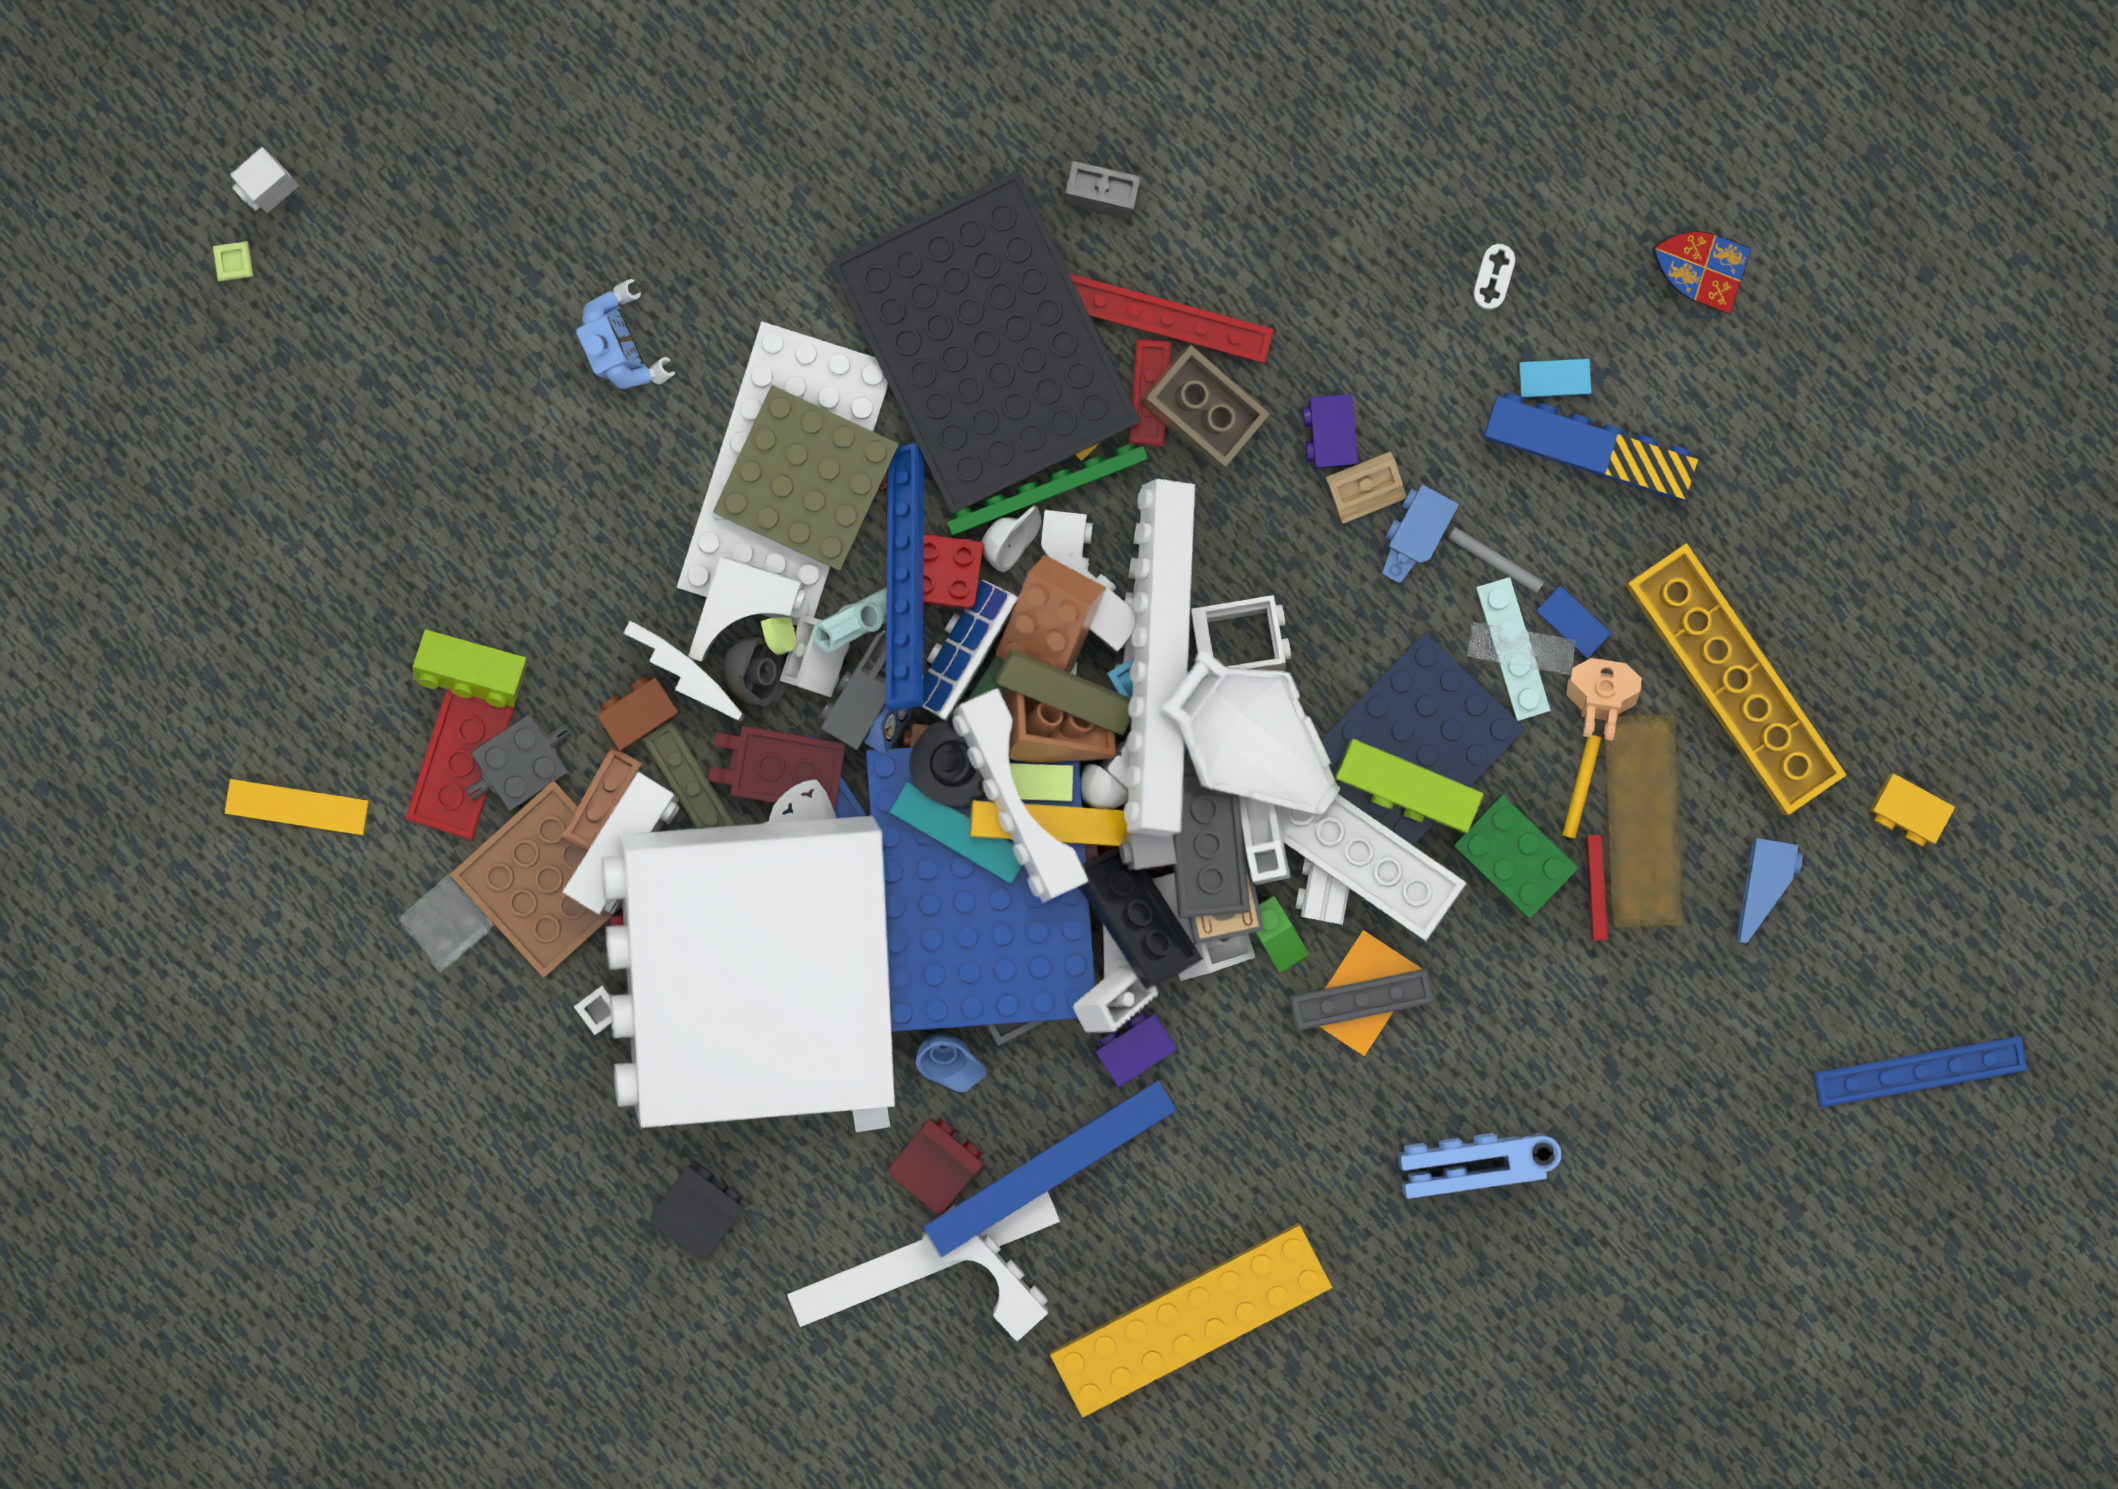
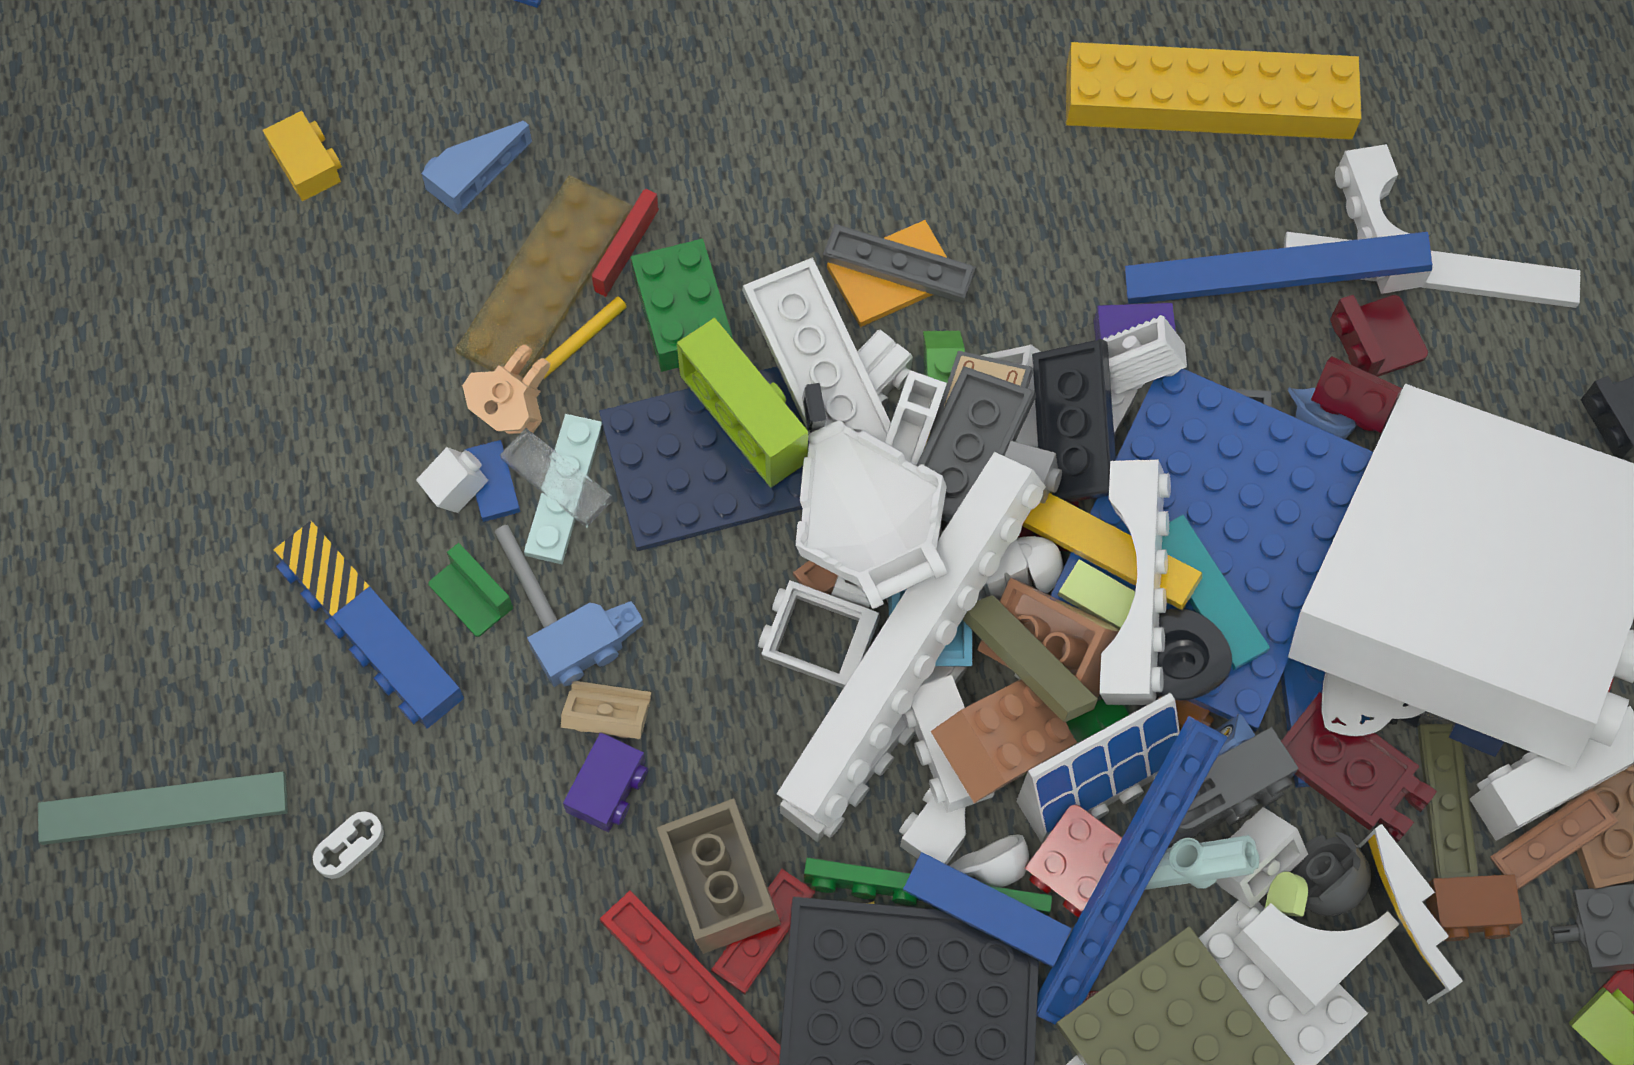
camera: 150 degrees left, 20 degrees down
(927, 1087) = (1356, 395): none -> dark red bracket
(994, 494) = (987, 909): none -> blue tile
(1347, 809) = (813, 407): none -> black tile
(1518, 1155) = (880, 72): light blue hinge -> none
(1530, 520) = (470, 592): none -> green panel
(1555, 378) = (356, 712): medium azure tile -> none
(1600, 599) = (452, 479): none -> white brick
(1649, 223) = (162, 808): none -> sand green tile
(1703, 267) = (141, 732): shield -> none
(1735, 679) = (378, 345): yellow brick -> none

